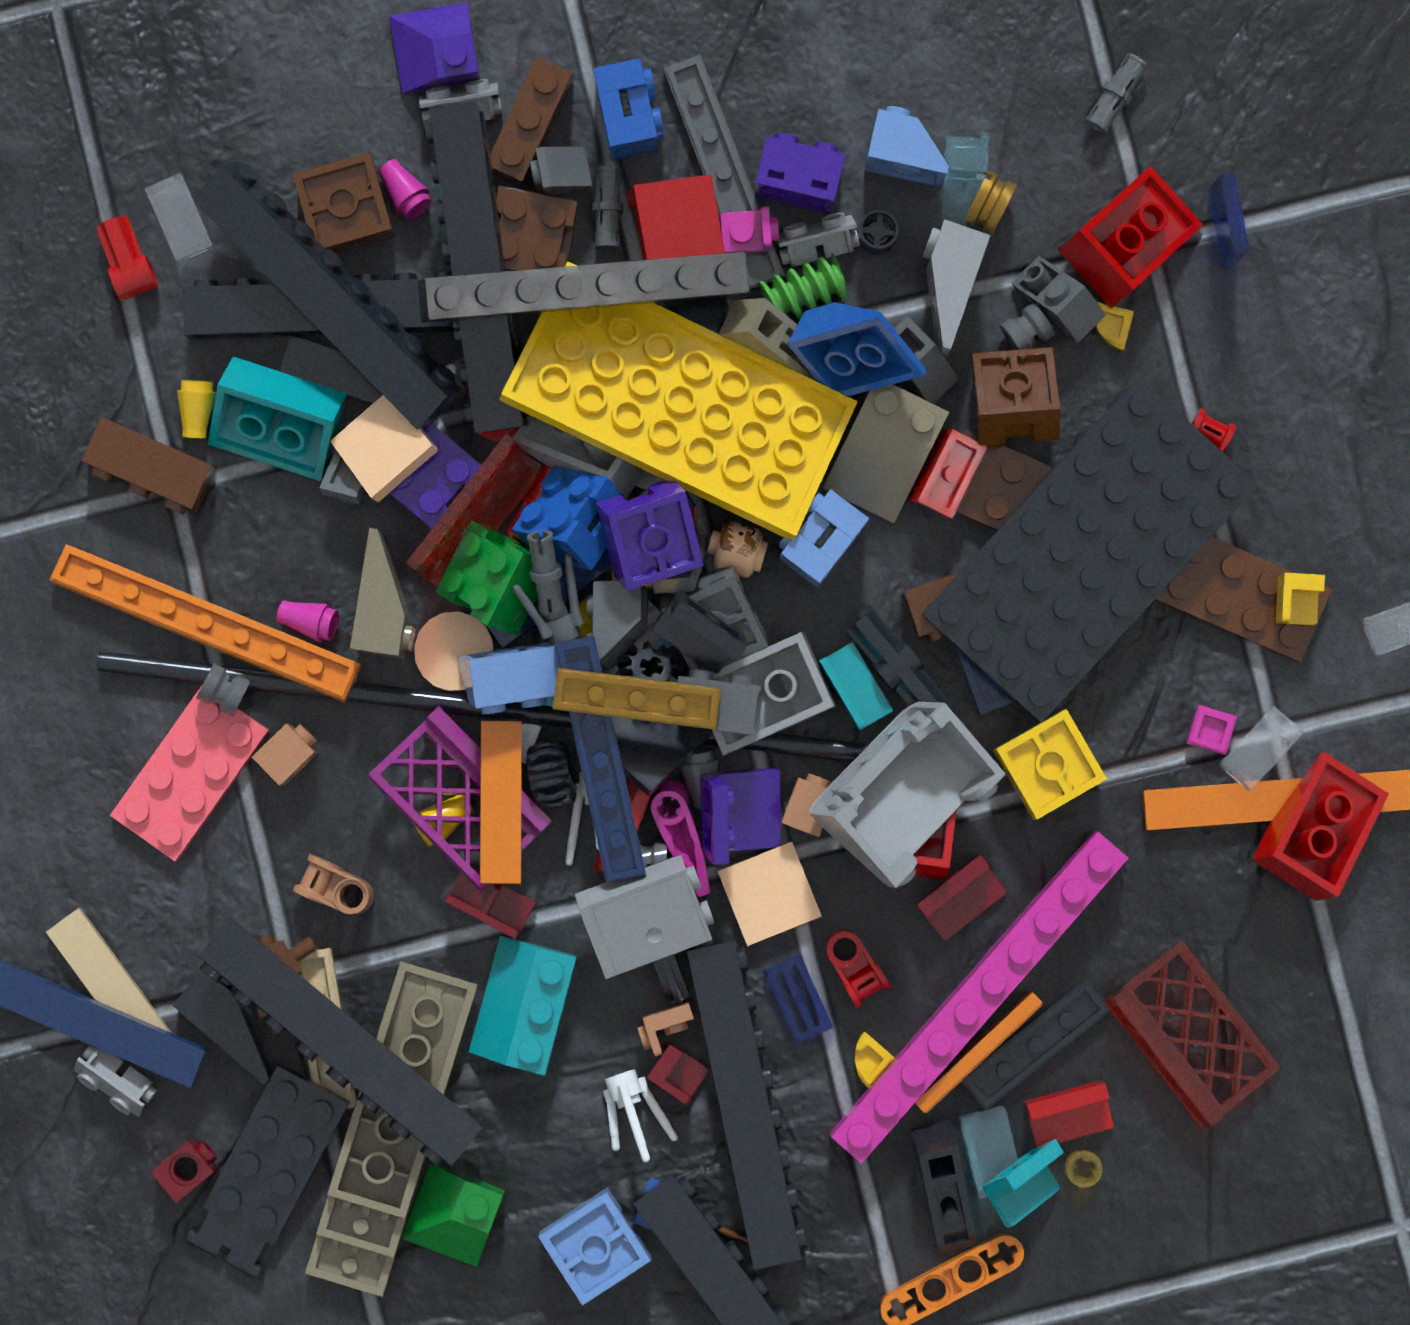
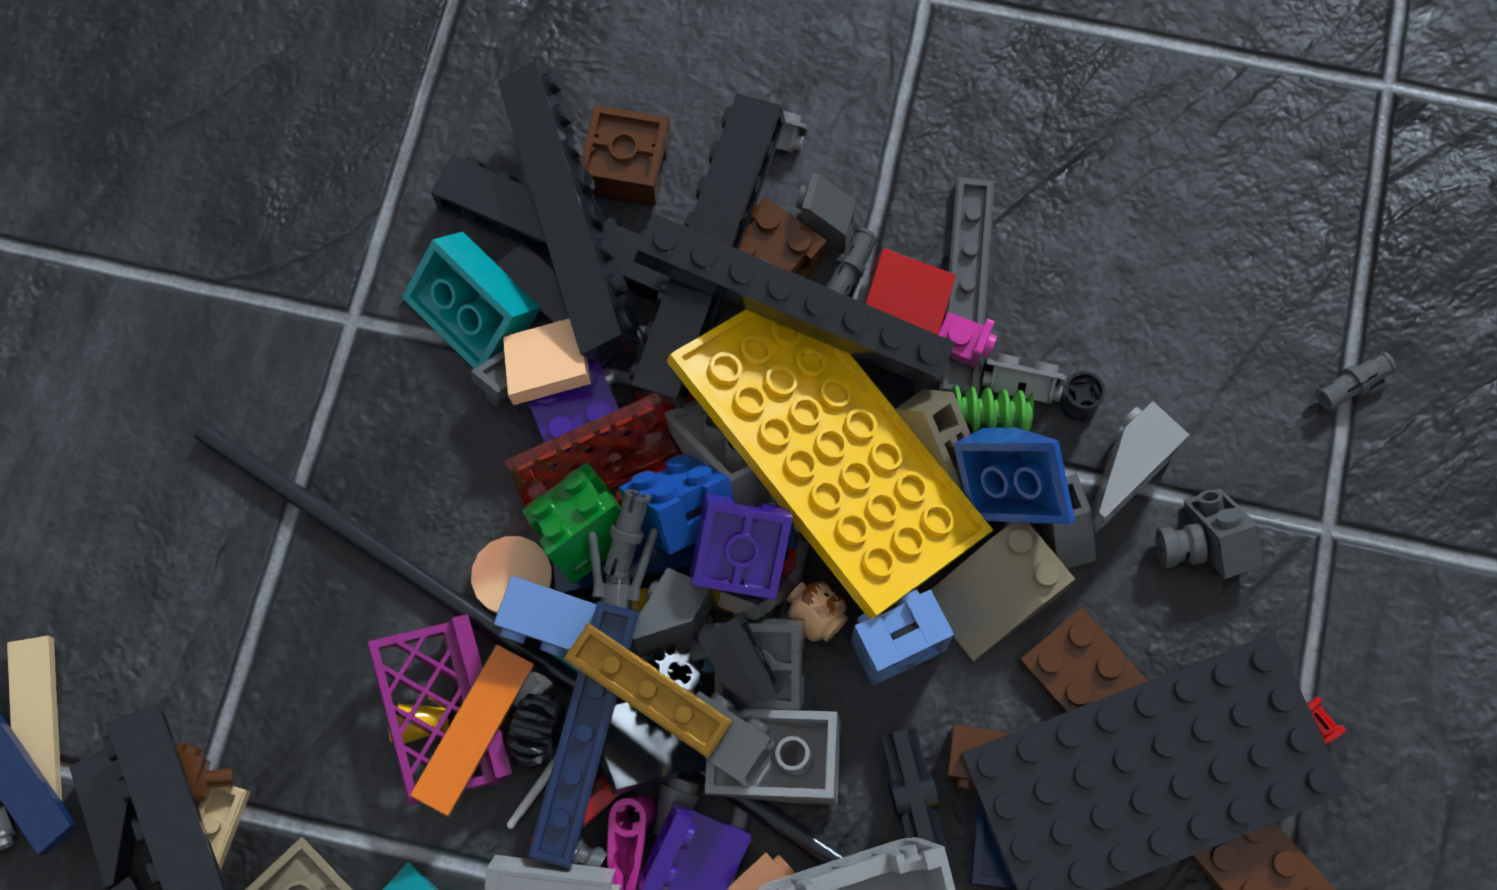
camera: 30 degrees right, 15 degrees down
(129, 268) = (420, 125): red piece -> none
(148, 466) = (339, 288): reddish brown brick -> none
(179, 217) = (483, 109): clear tile -> none
(188, 775) = (218, 567): coral plate -> none
(195, 407) = (406, 259): yellow cone -> none
(205, 623) = (311, 445): orange tile -> none
(223, 689) = (286, 501): dark grey wheel -> none
(286, 753) = (310, 590): nougat brick -> none
(310, 619) = (402, 485): dark pink cone -> none
(332, 885) = (278, 729): nougat piece -> none
(381, 610) = (465, 500): dark tan slope -> none
(405, 191) = (682, 171): dark pink cone -> none
(434, 48) = (771, 73): dark purple slope -> none
(494, 905) = (416, 828): dark red panel -> none
(530, 121) = (831, 153): reddish brown brick -> none
(626, 110) = (910, 188): blue piece -> none
(799, 173) = (1035, 309): dark purple piece -> none
(855, 686) = (863, 795): teal panel -> none
(904, 149) = (1140, 334): medium blue slope -> none
(946, 473) = (1047, 636): panel -> none
(967, 157) = (1192, 372): clear light blue panel -> none
(990, 203) = (1200, 415): pearl gold wheel -> none
(1016, 395) = (1146, 596): reddish brown piece -> none
(1114, 326) = (1264, 583): yellow tile -> none
(1130, 237) = (1314, 509): red slope -> none
(1228, 219) = (1420, 533): clear blue tile -> none

